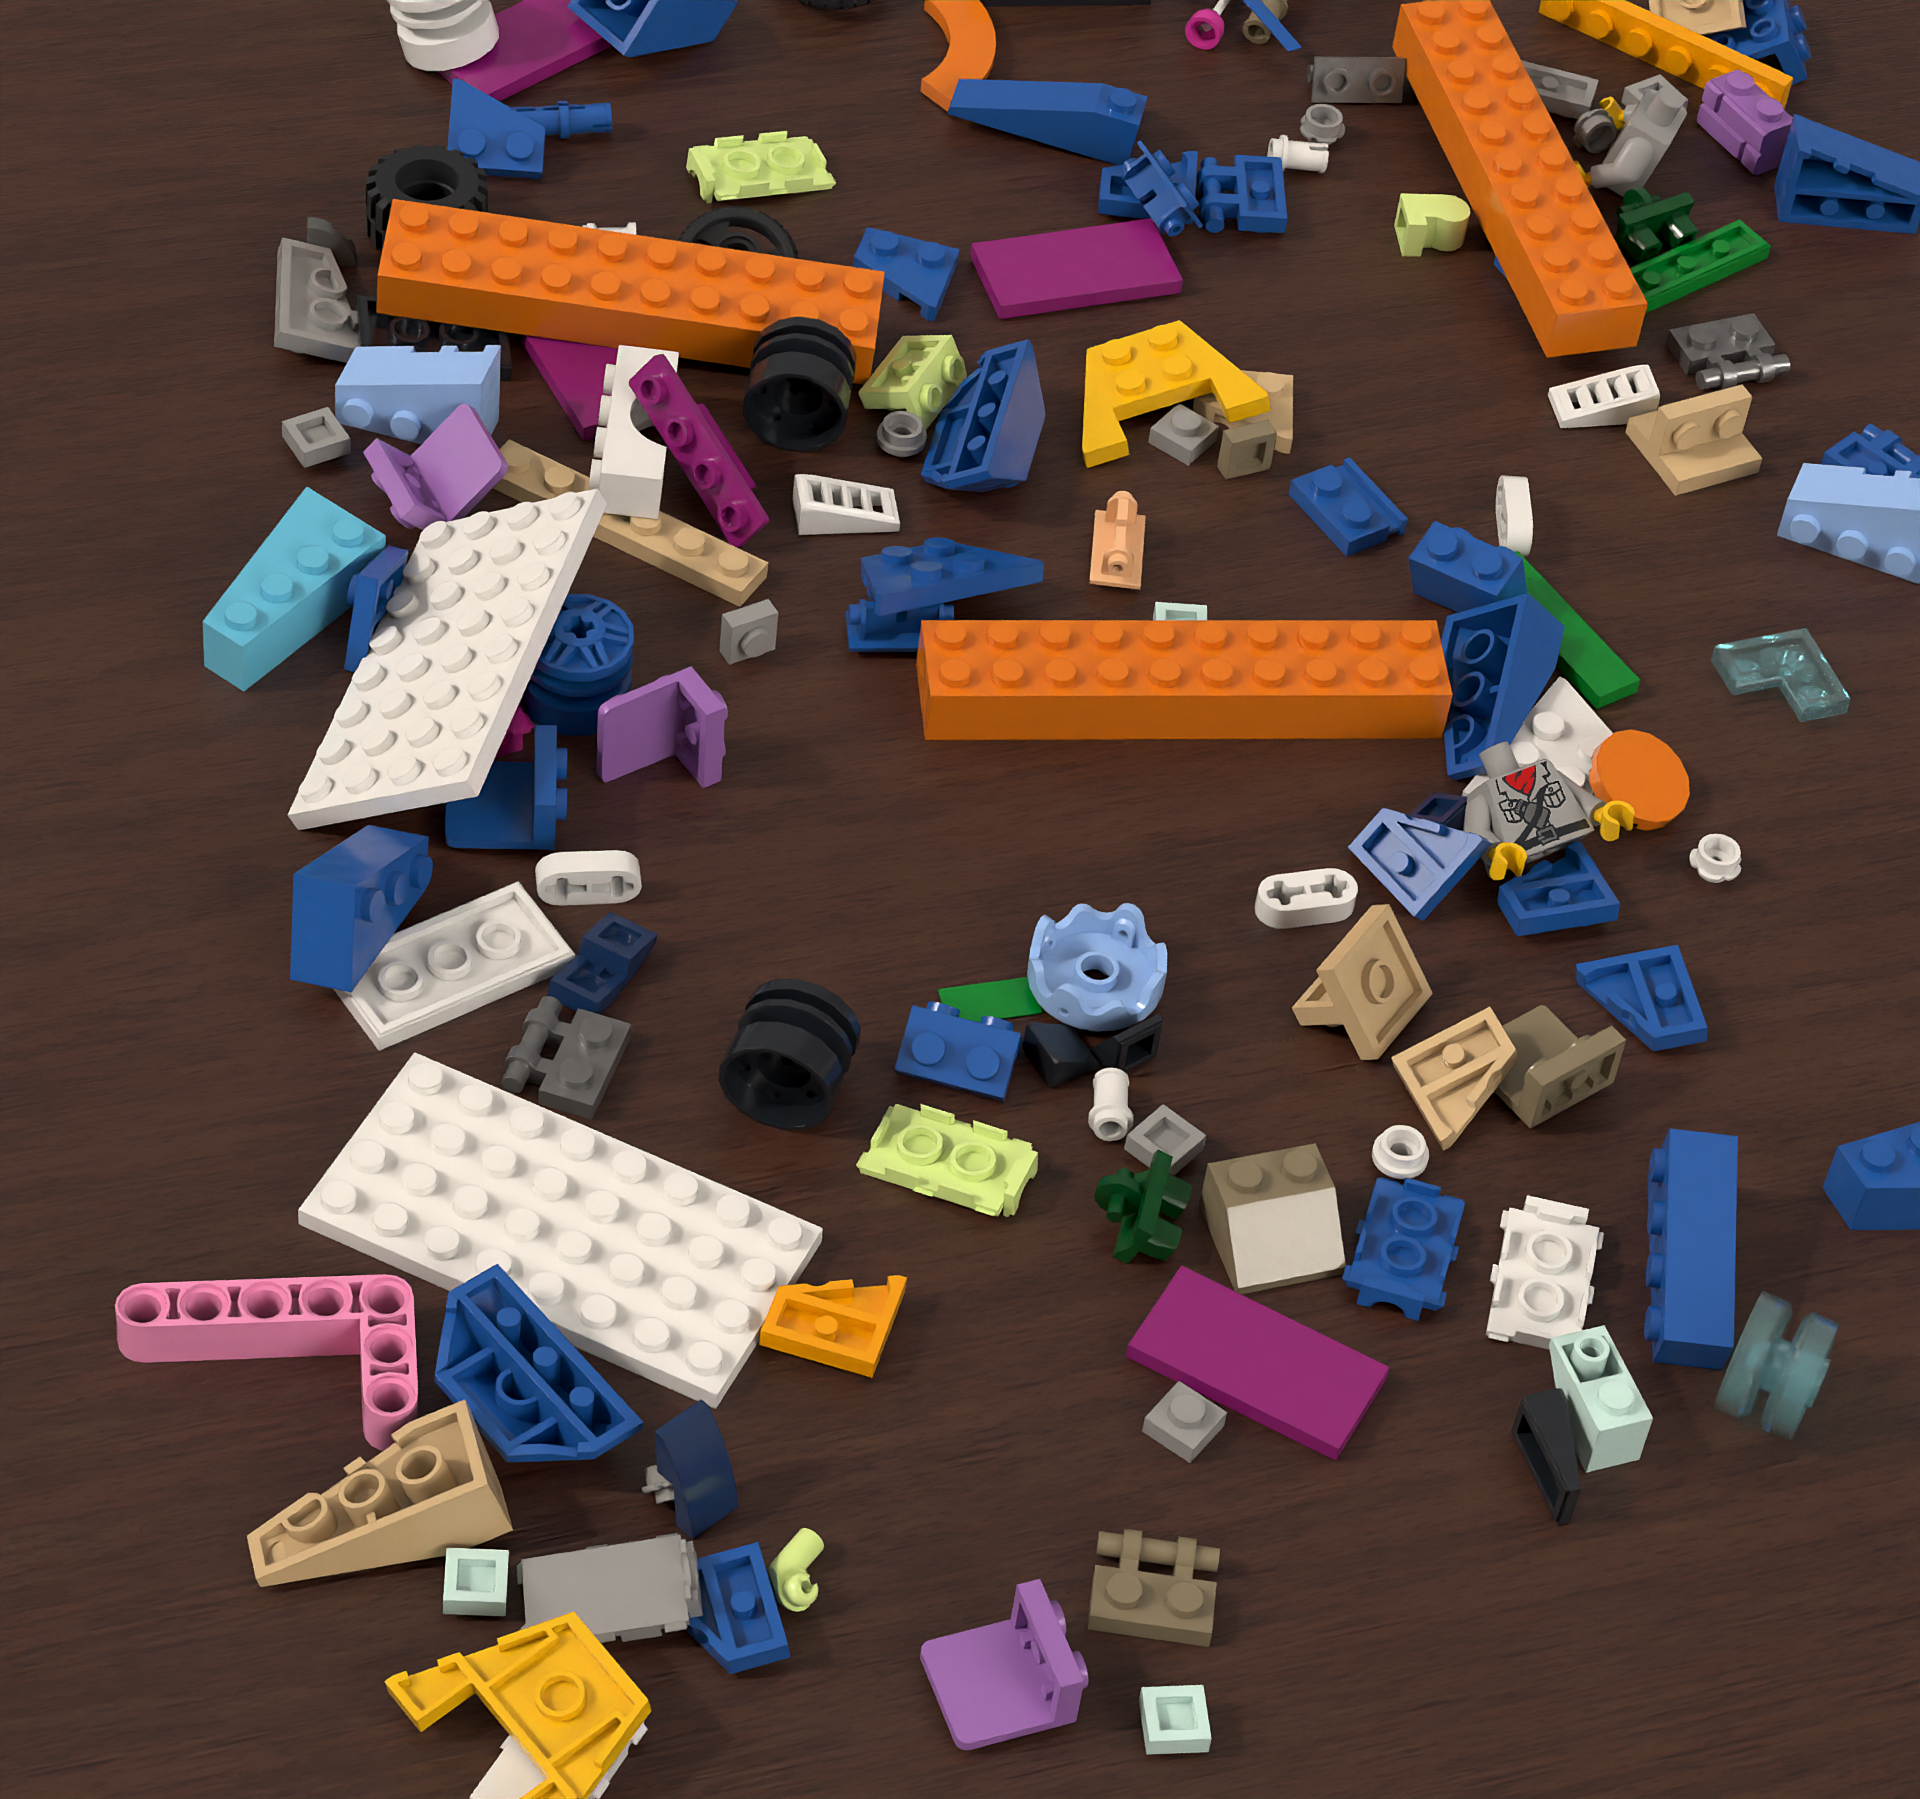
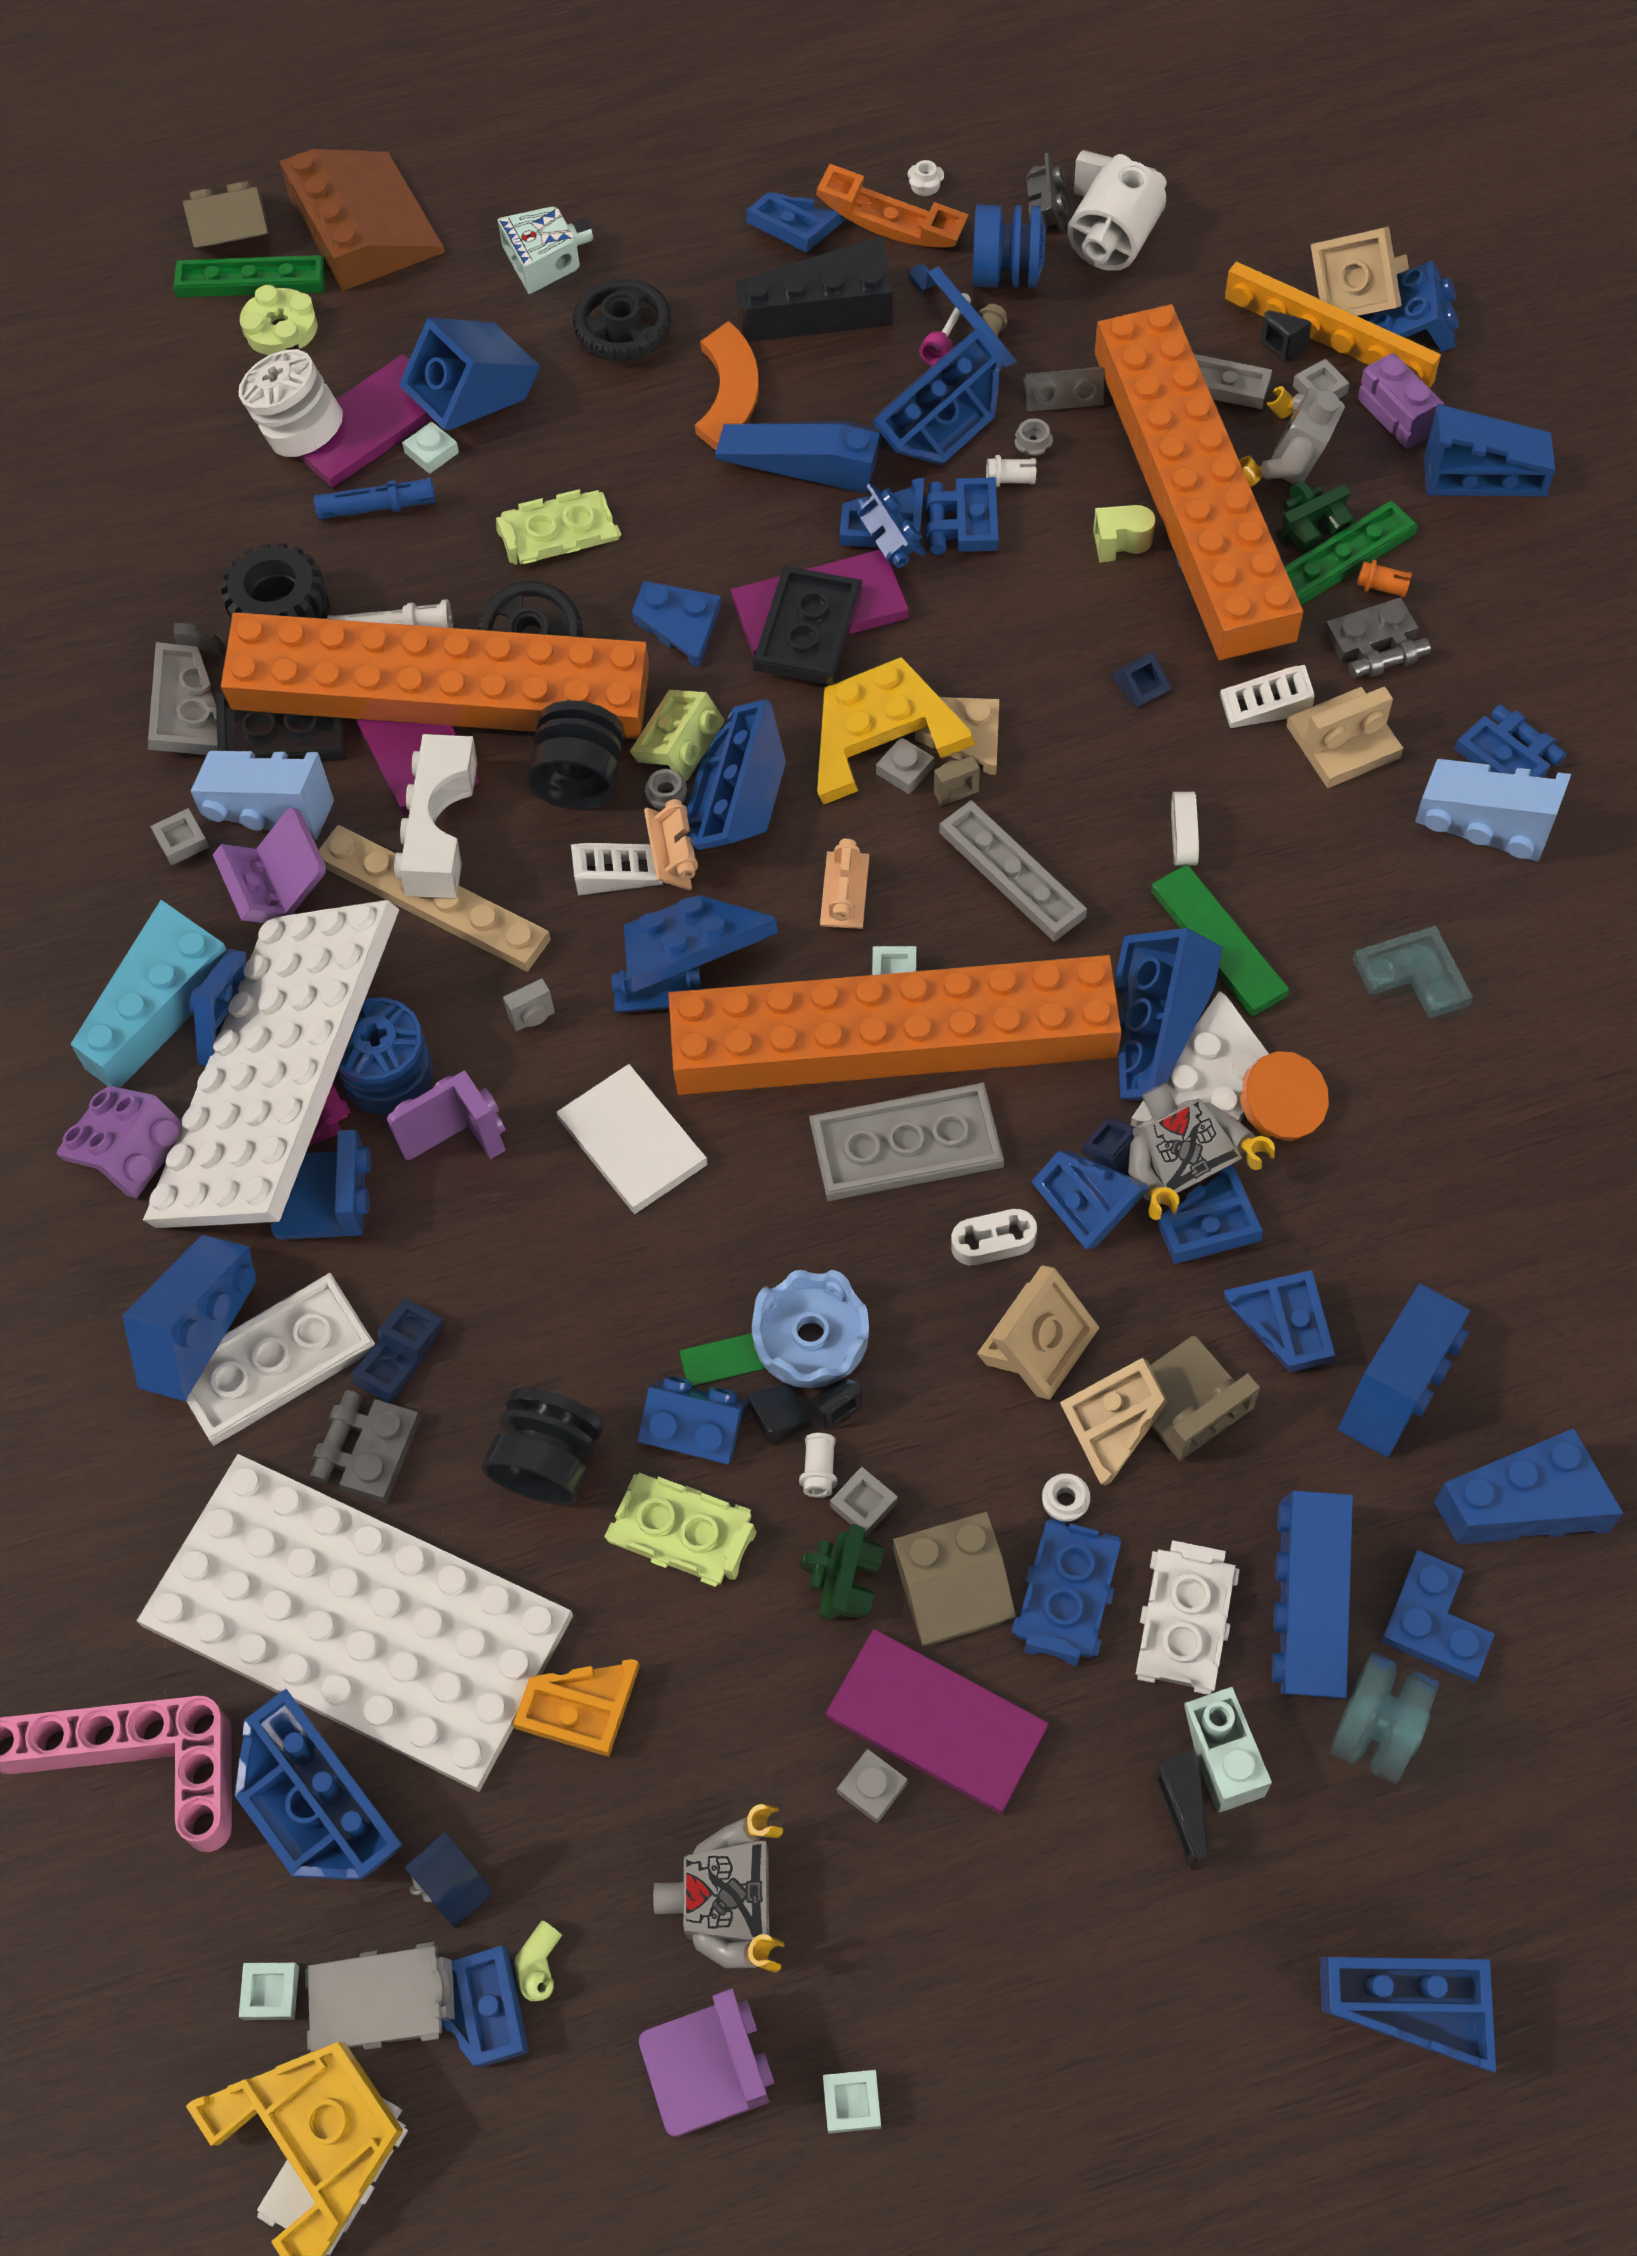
camera: 10 degrees right, 15 degrees up
(267, 723) = (122, 1137): none -> medium lavender bracket
(398, 1508) = (211, 1918): tan wedge -> none
(495, 134) = (333, 521): blue wing -> none
(588, 877) = (387, 1266): white beam -> none
(603, 77) = (430, 447): none -> light aqua plate
(700, 450) = (493, 830): magenta bracket -> none
(874, 775) = (631, 1138): none -> white tile
(914, 486) = (671, 853): none -> light nougat hinge
(1023, 1504) = (727, 1894): none -> torso
(1066, 284) = (807, 625): none -> black tile
(1153, 1603) = (838, 1976): dark tan plate -> none
(1198, 800) = (906, 1141): none -> light grey tile
(1222, 77) = (945, 403): none -> blue wedge
(1315, 543) = (1013, 871): none -> light grey plate
(1347, 506) = (1043, 826): blue plate -> none
(1457, 371) = (1142, 679): none -> dark blue slope
(1464, 571) = (1139, 898): blue brick -> none
(1595, 131) = (1268, 420): light grey plate -> none
(1612, 48) = (1285, 334): none -> black slope
(1716, 858) = (1354, 1160): white plate -> none
(1733, 294) = (1383, 579): none -> orange pin
(1785, 1049) = (1404, 1368): none -> blue wedge
(1817, 1284) = (1425, 1628): none -> blue plate
(1820, 1643) = (1417, 2001): none -> blue wedge

